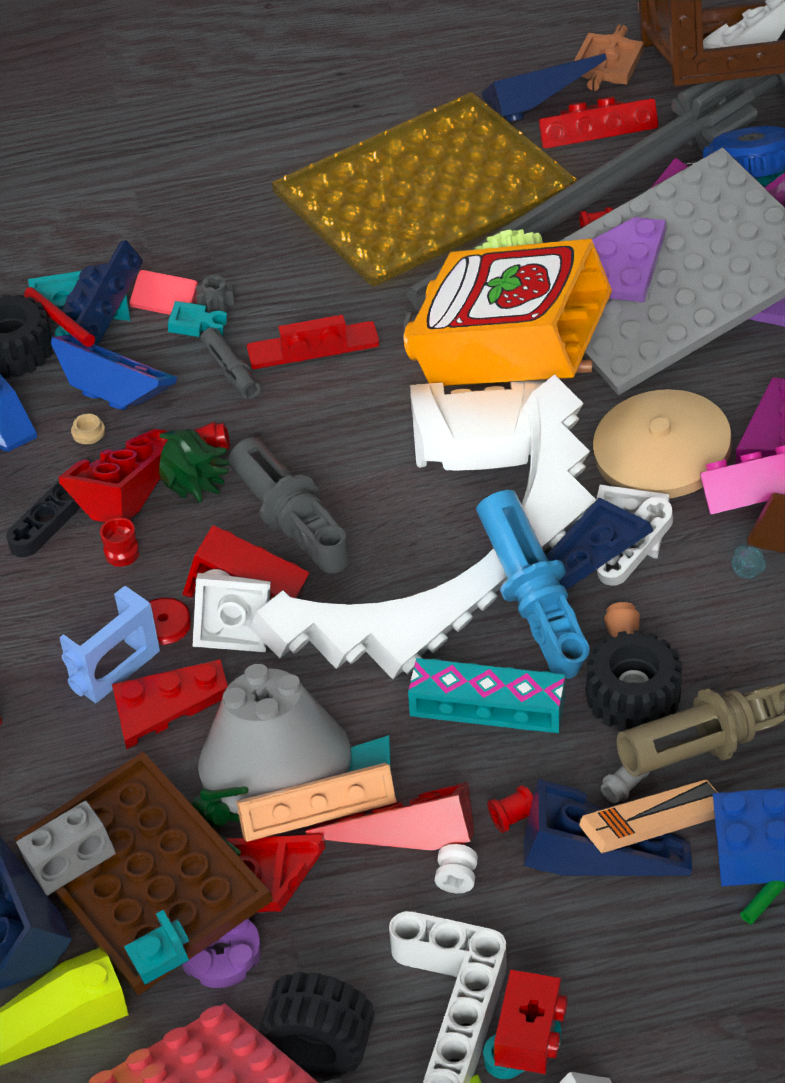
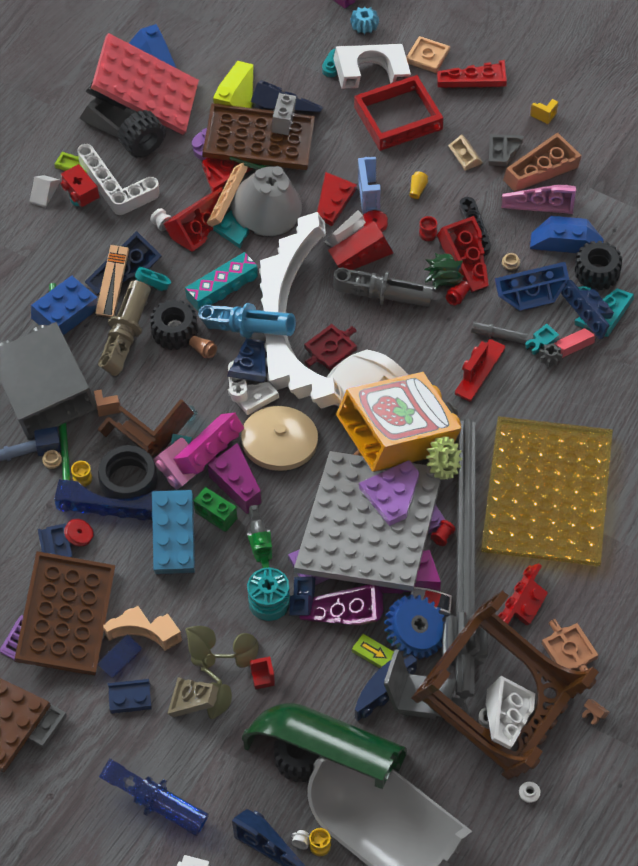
camera: 130 degrees right, 10 degrees up
(39, 613) = (418, 183): none -> yellow cone
(61, 318) = (585, 280): red bar -> none
(159, 950) = (214, 111): teal bracket -> none
(448, 499) = (330, 347): none -> dark red plate
(510, 809) = (167, 251): red bush -> none
(522, 93) = (573, 587): dark blue wedge -> none
(586, 772) = (153, 278): none -> teal plate

